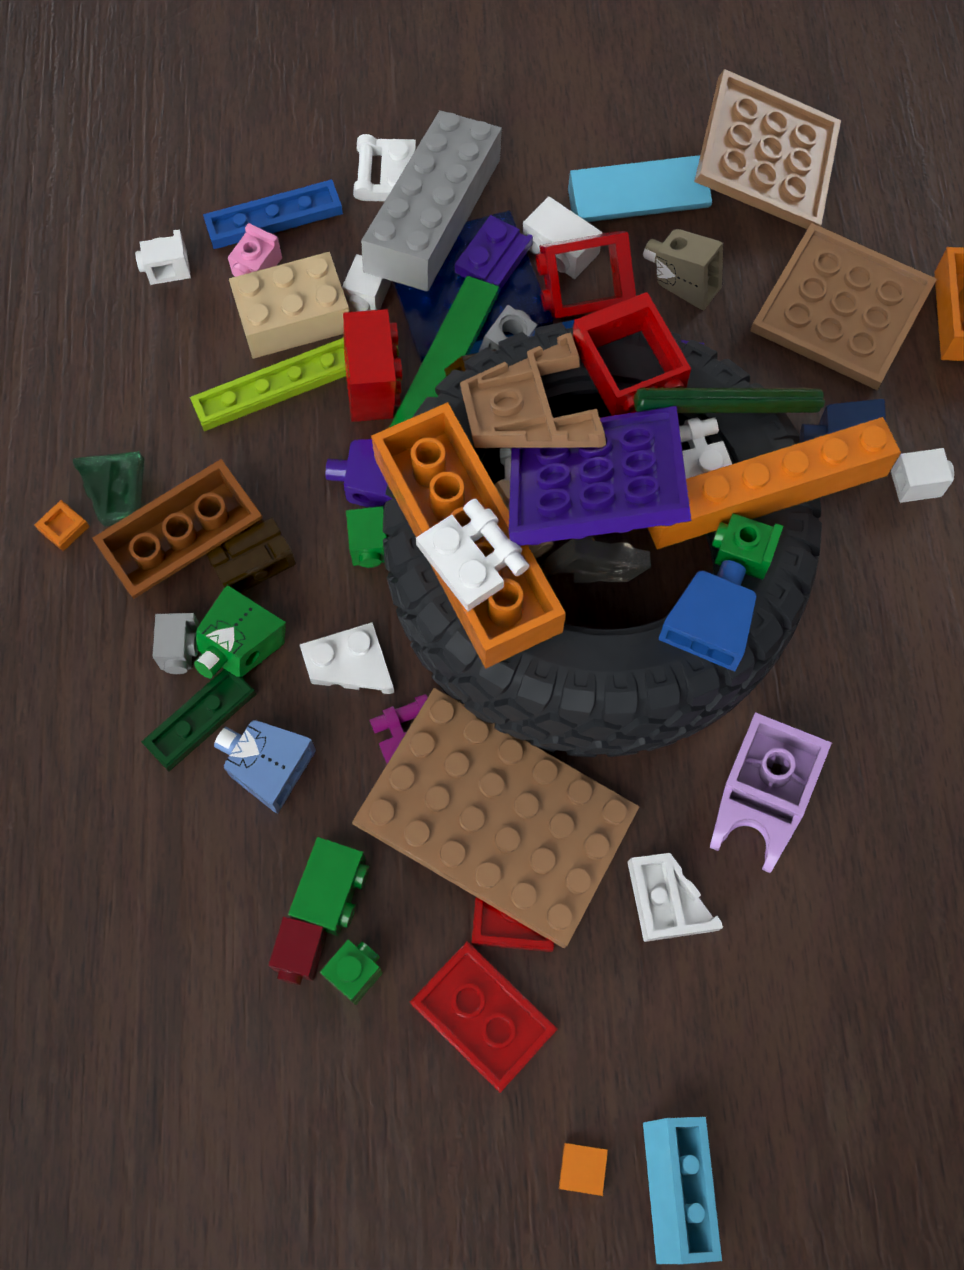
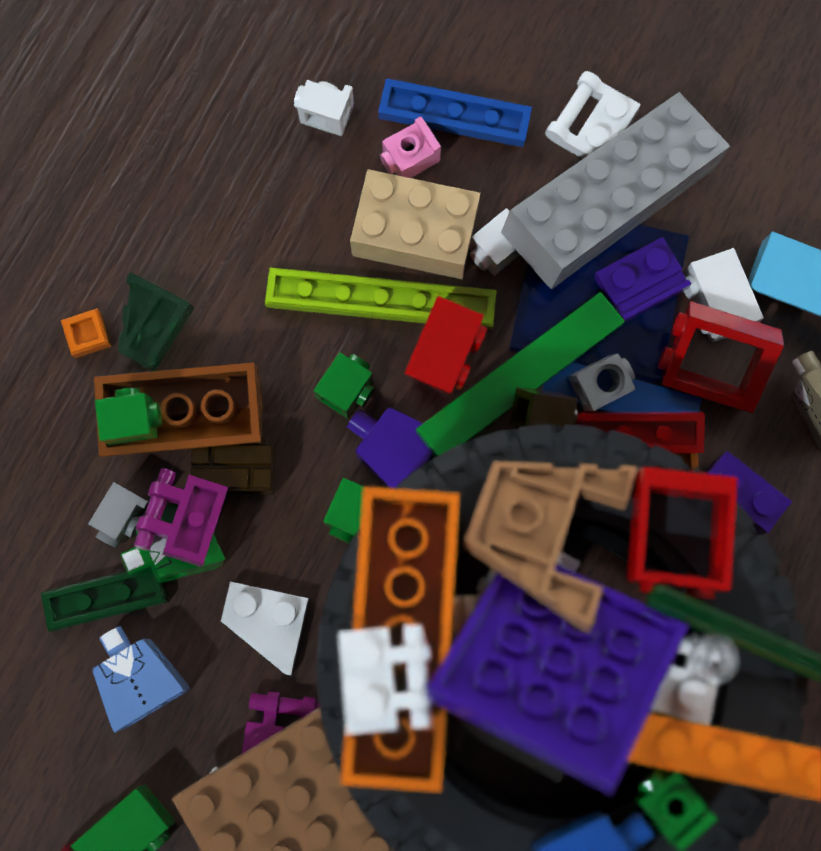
camera: 30 degrees right, 10 degrees up
(141, 547) = (127, 417): none -> green brick
(242, 598) = (194, 520): none -> magenta plate
(305, 449) = (345, 384): none -> green brick
(706, 430) = (701, 659): none -> clear plate

